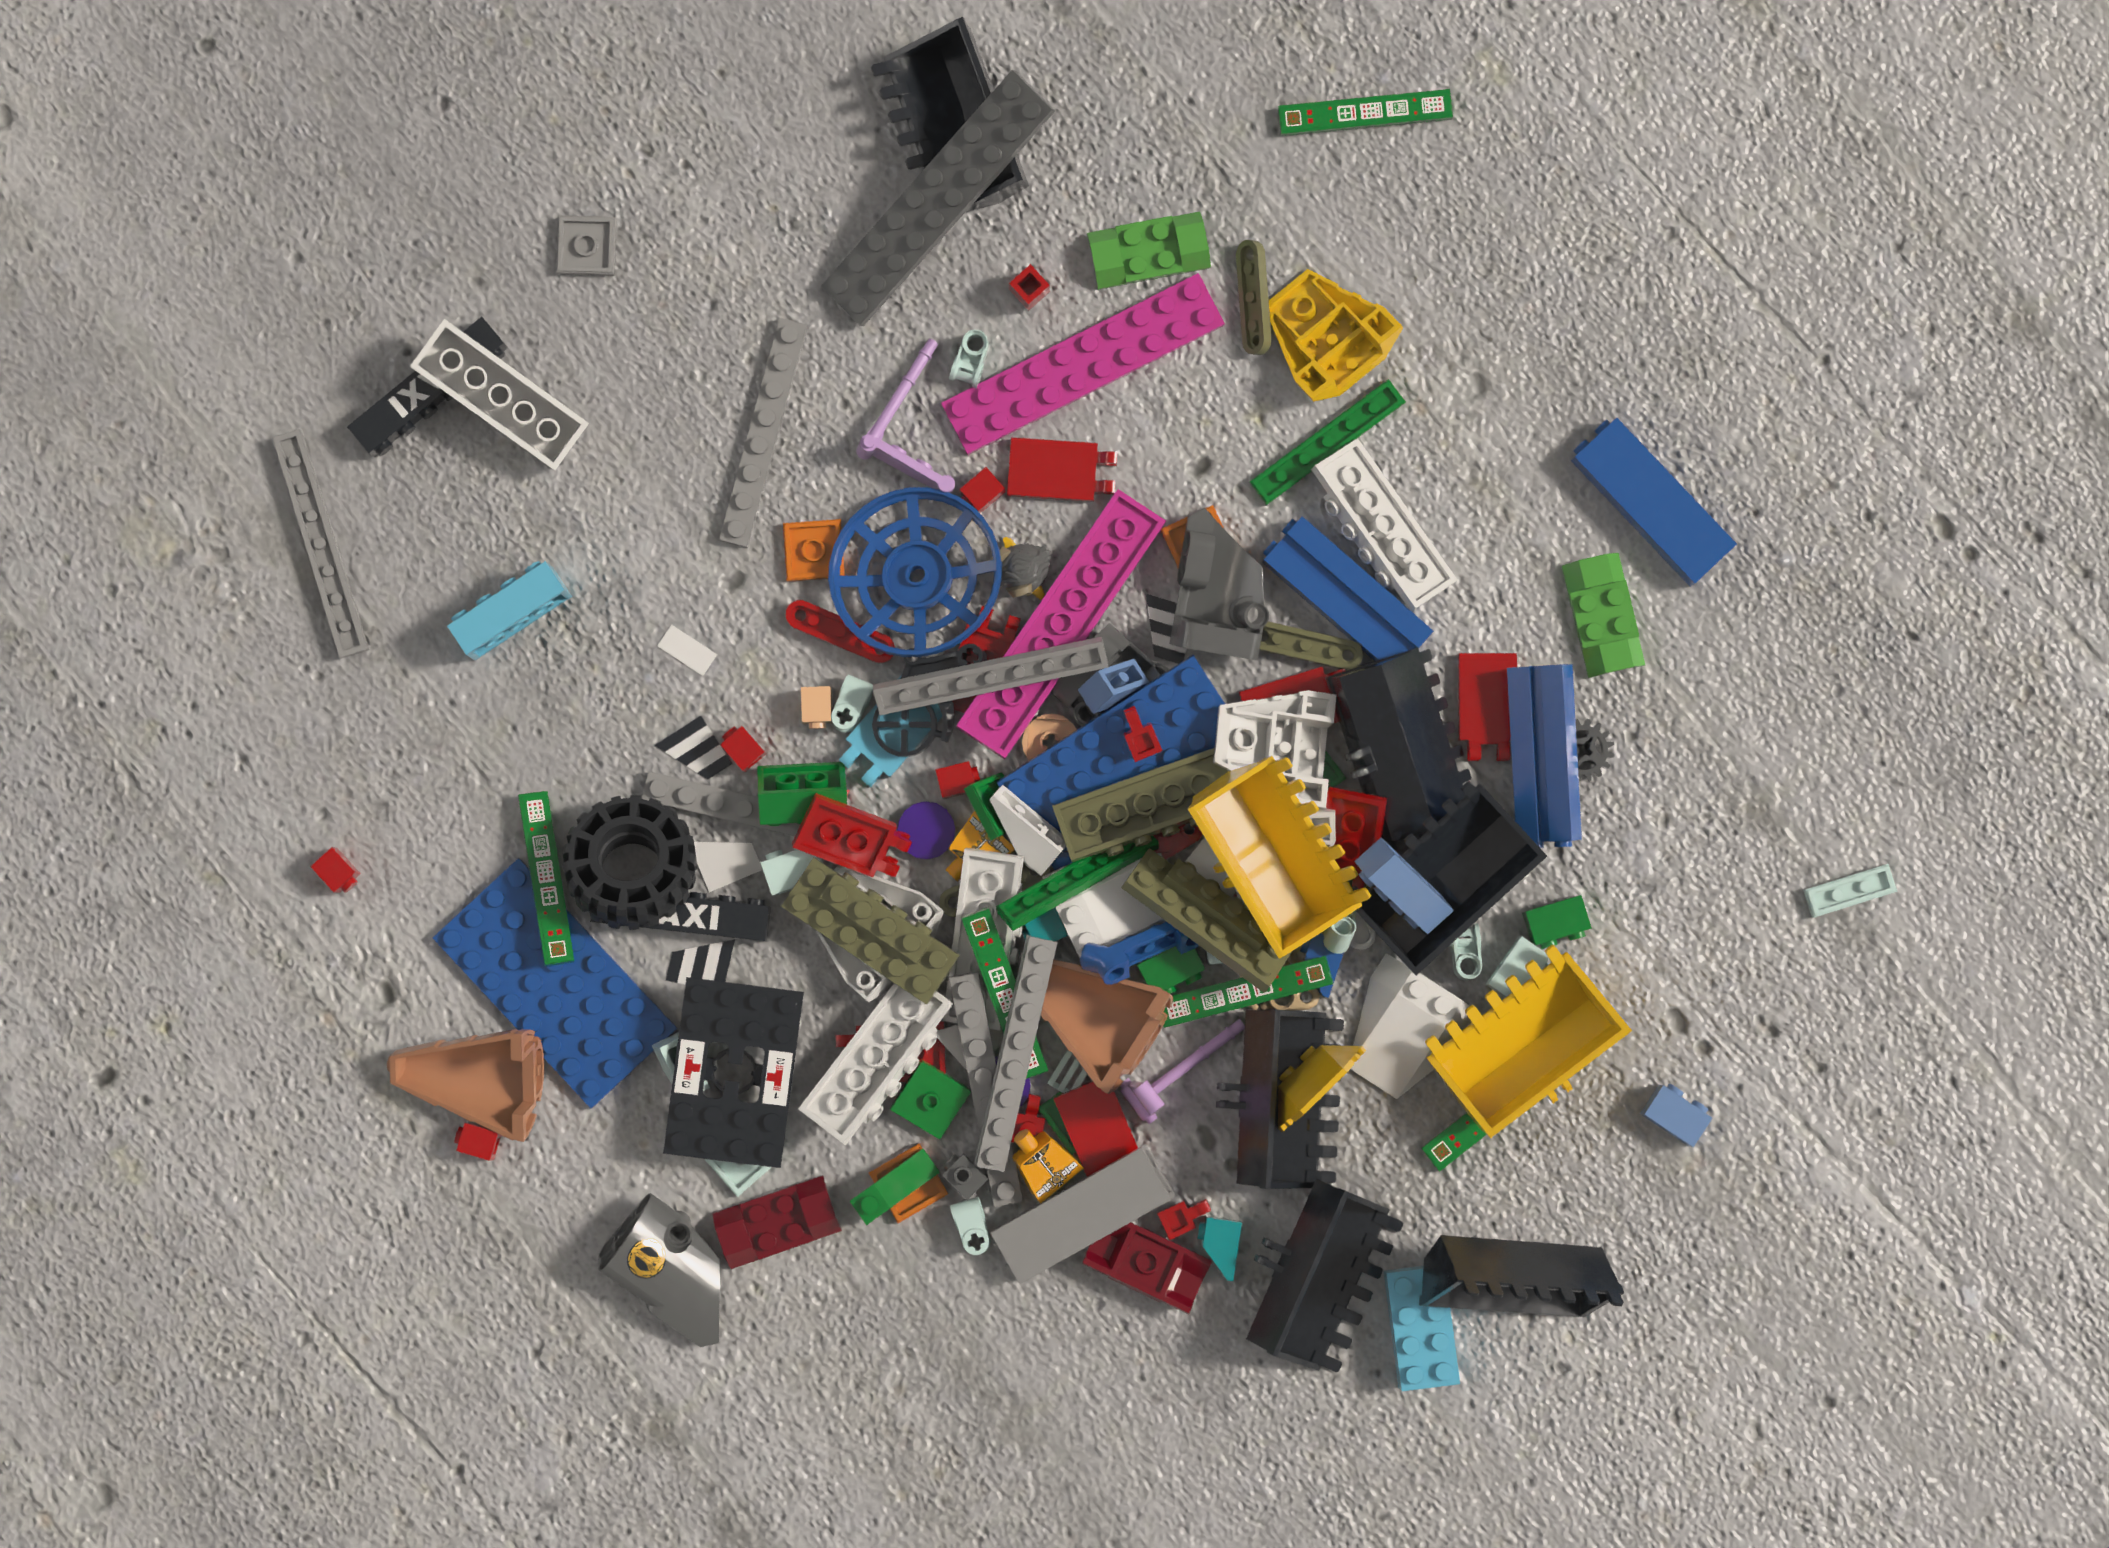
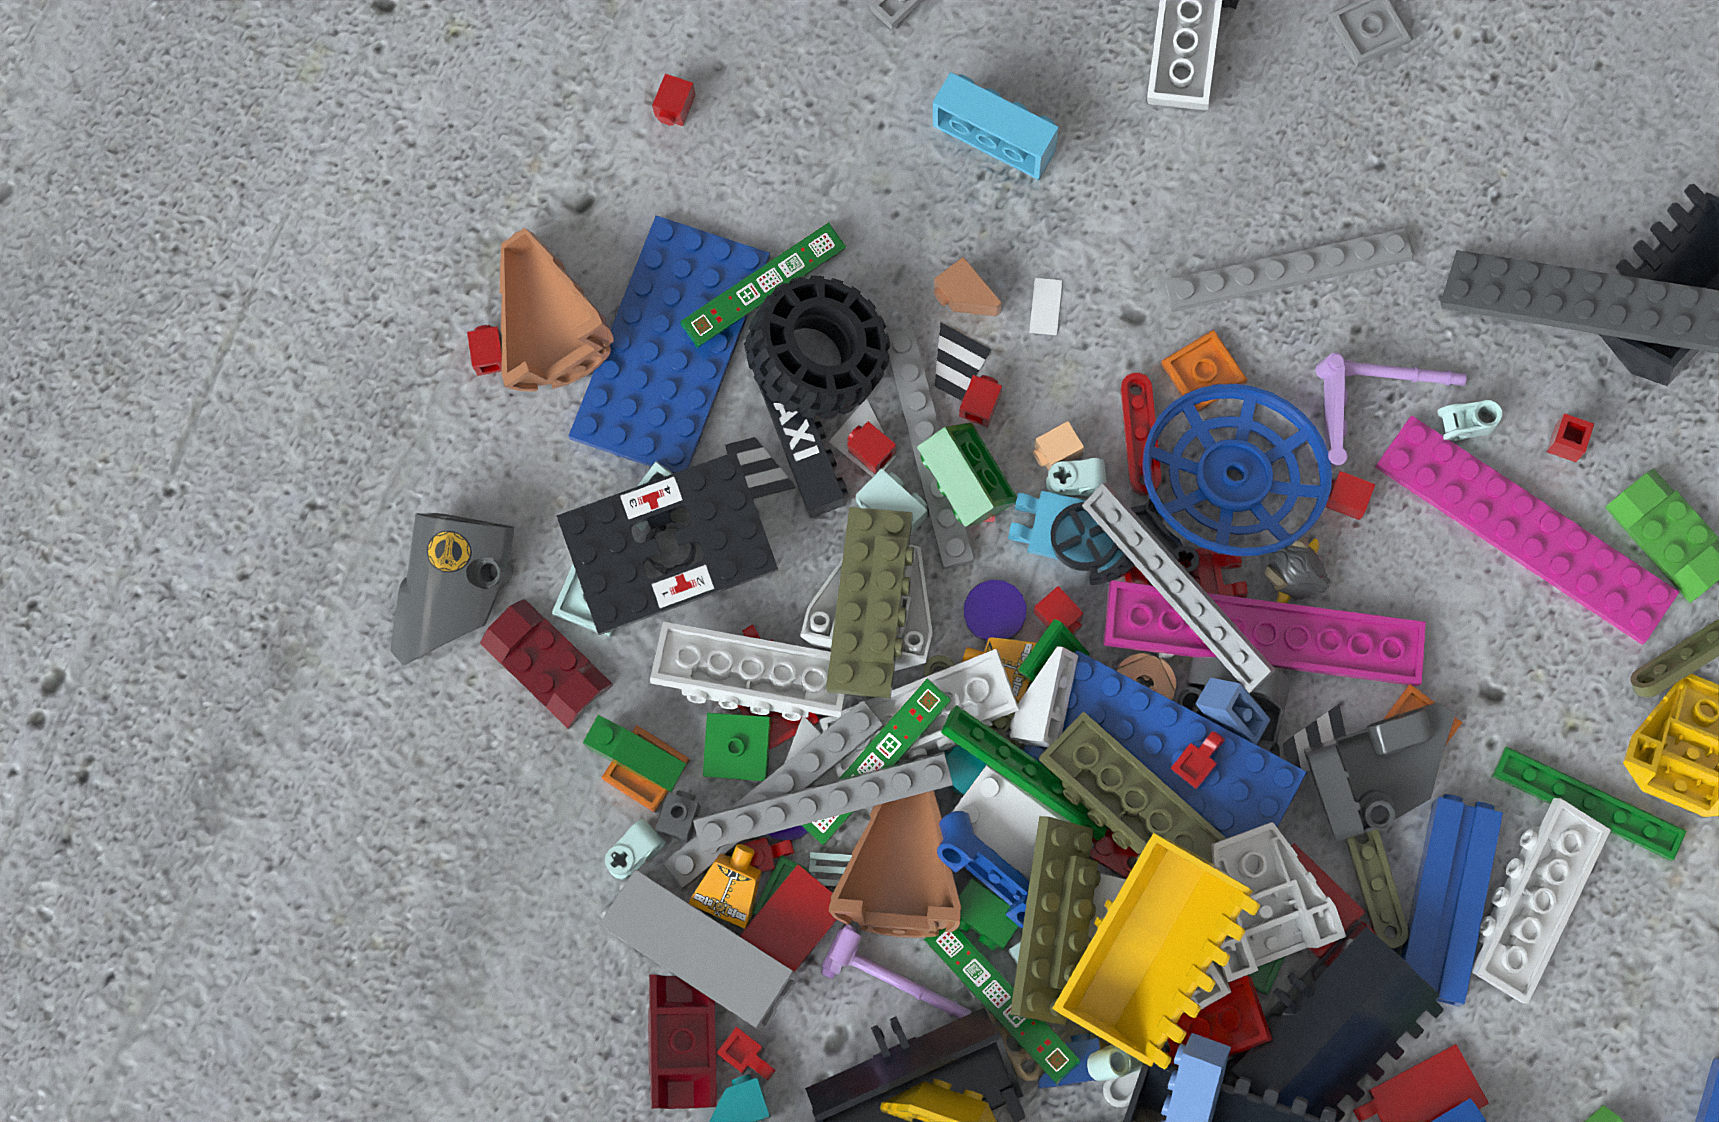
camera: 70 degrees right, 10 degrees down
(640, 711) = (965, 291): none -> nougat slope
(735, 860) = (871, 447): none -> red brick
(850, 837) = (949, 537): red tile -> none
(1057, 469) = (1410, 557): red tile -> none

